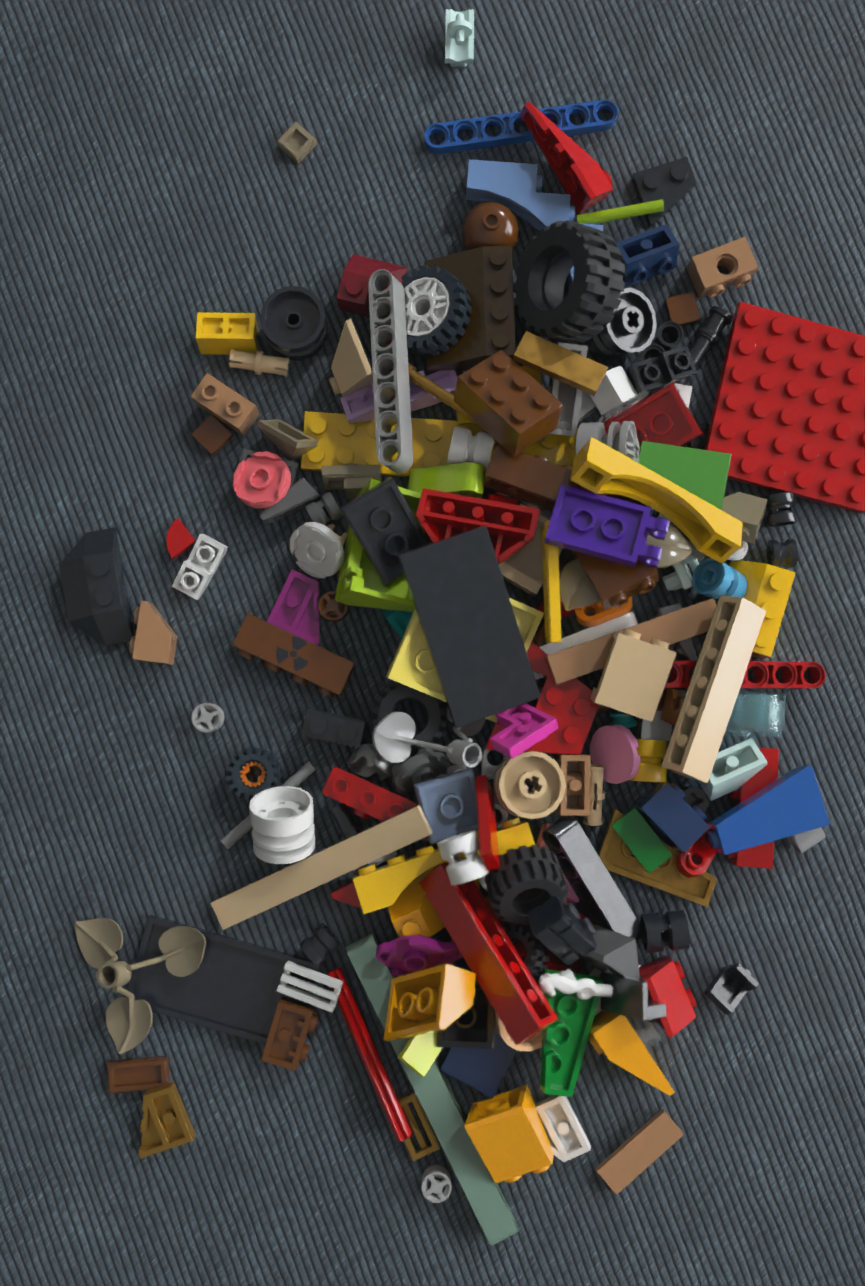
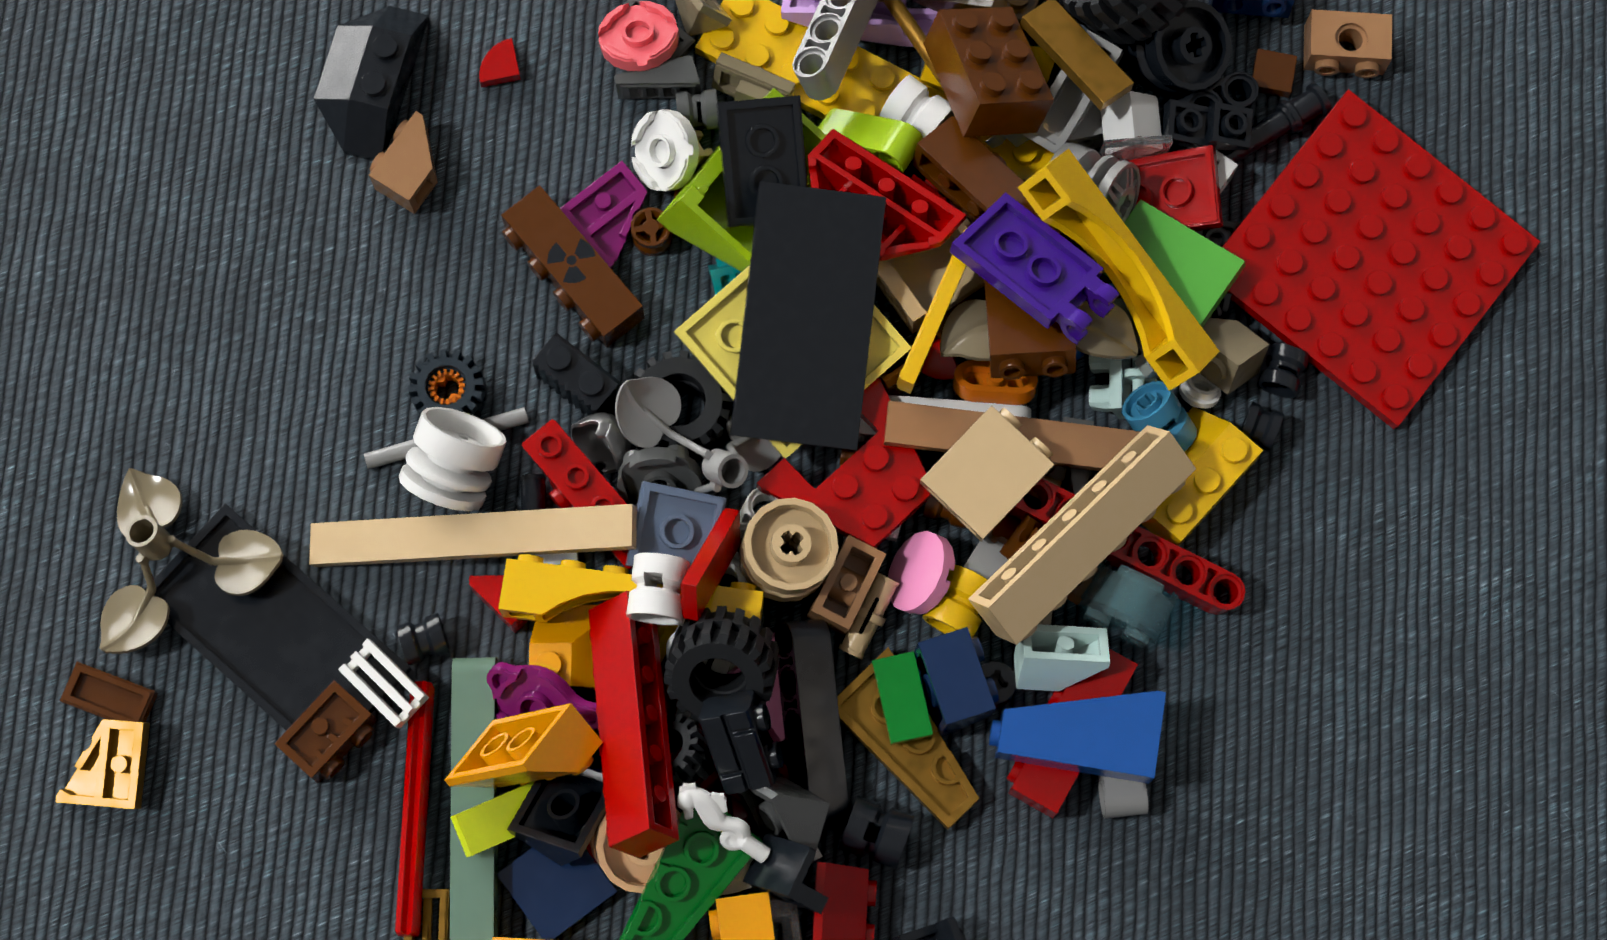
camera: 25 degrees right, 10 degrees down
(200, 566) = (510, 110): white slope -> none
(202, 719) = (422, 285): light grey wheel -> none
(523, 729) = (812, 469): dark pink plate -> none
(623, 719) = (956, 536): teal bush -> none
(702, 852) = (974, 749): red plate -> none

